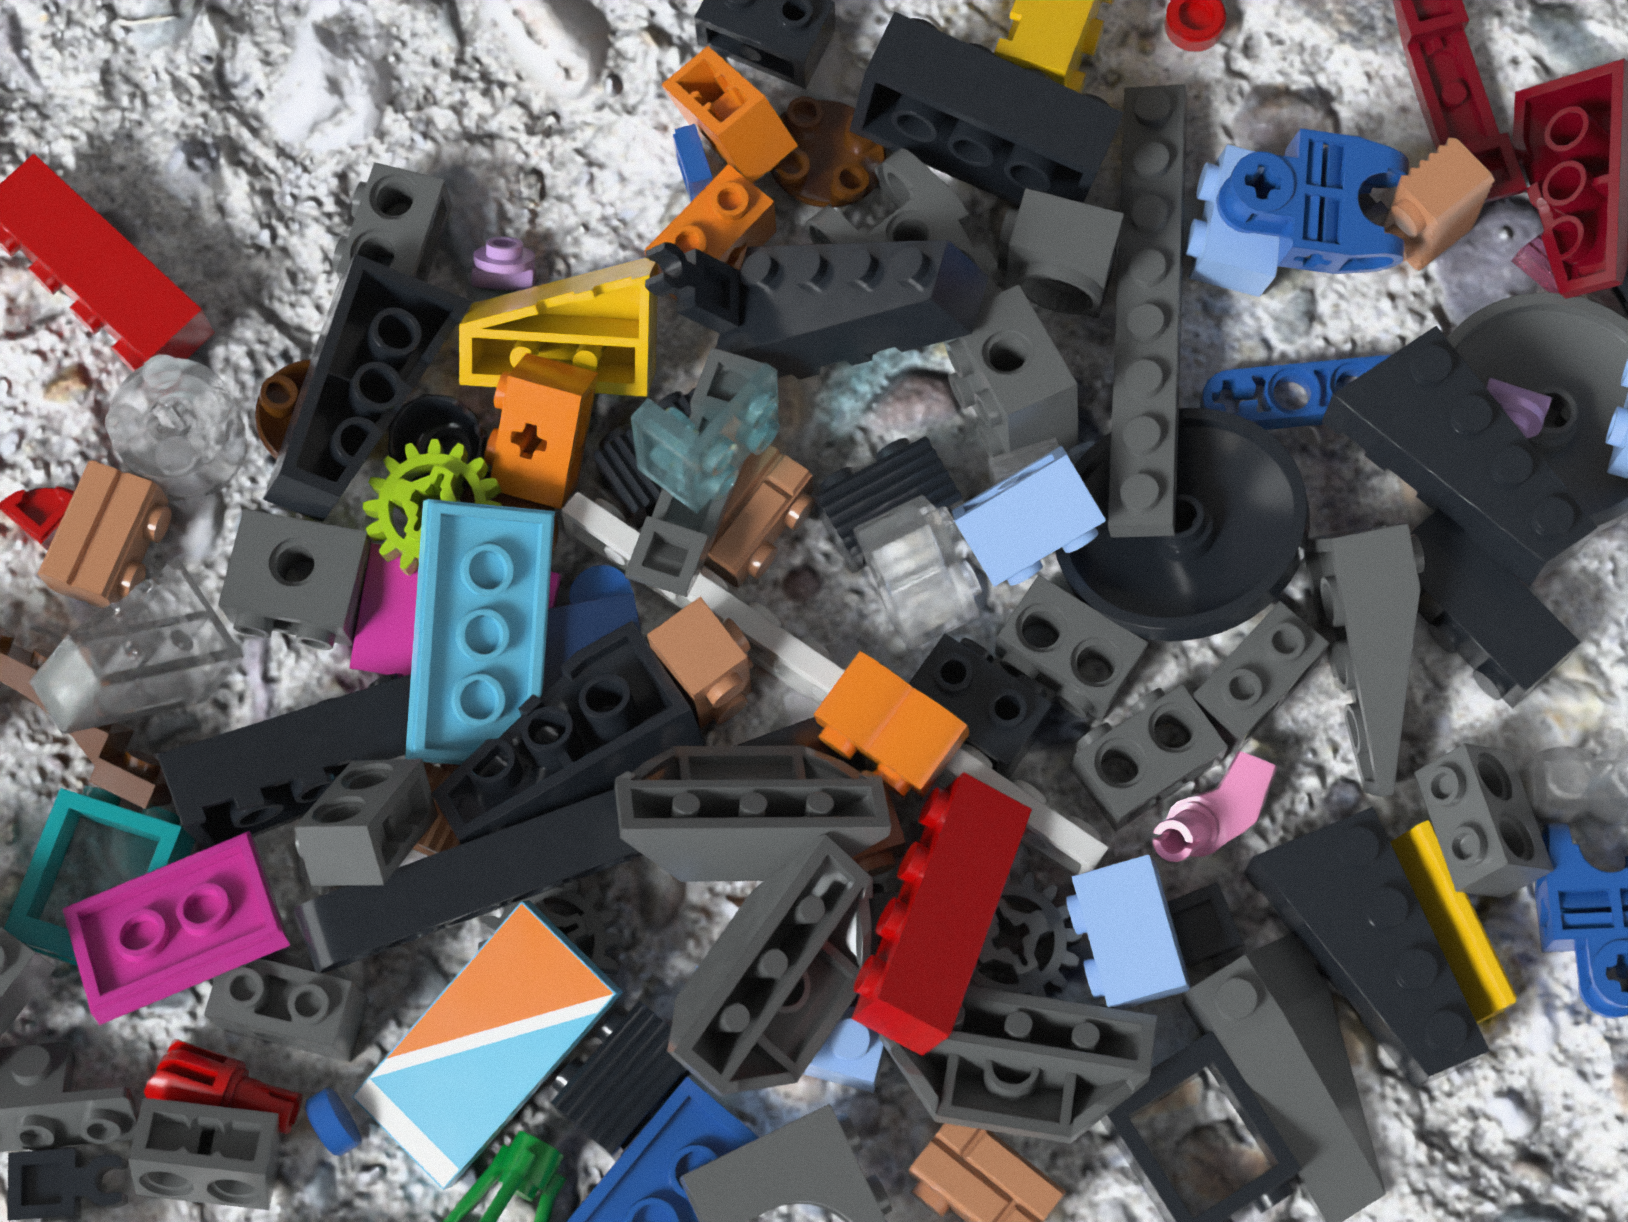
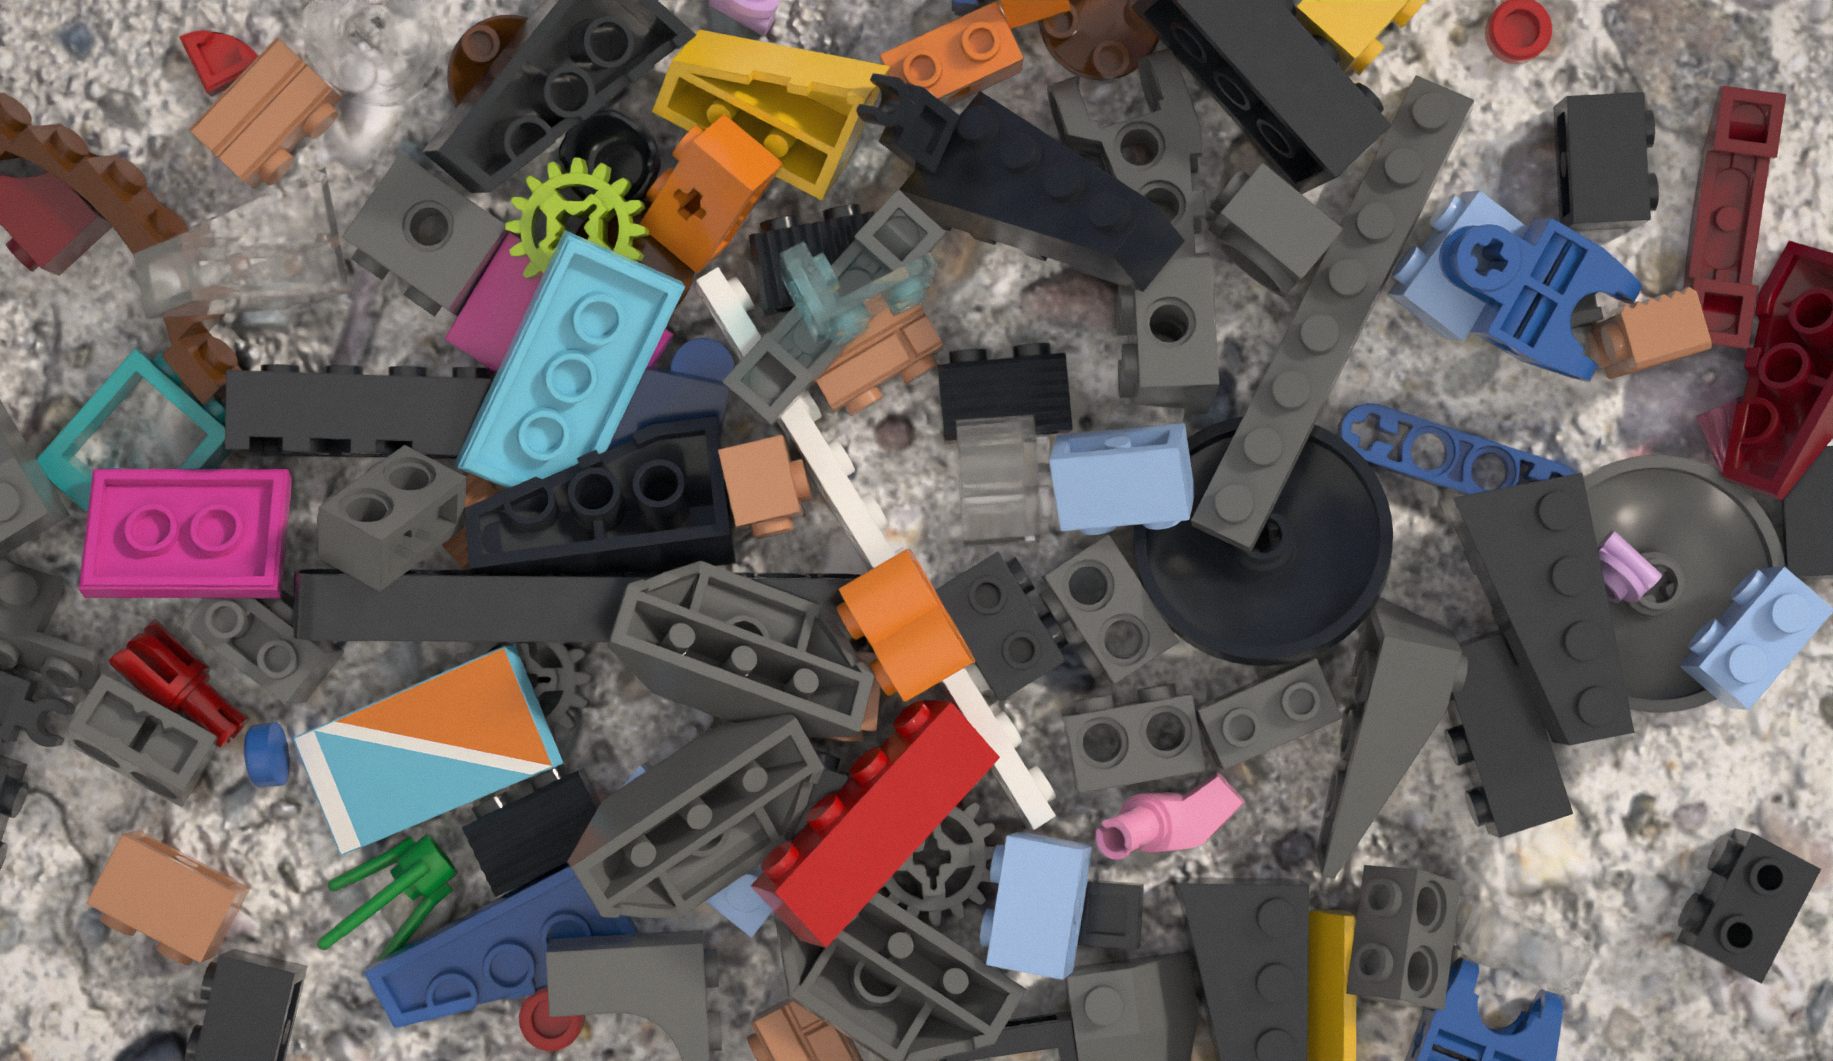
camera: 20 degrees right, 15 degrees up
(1319, 81) = (1604, 161): none -> black brick

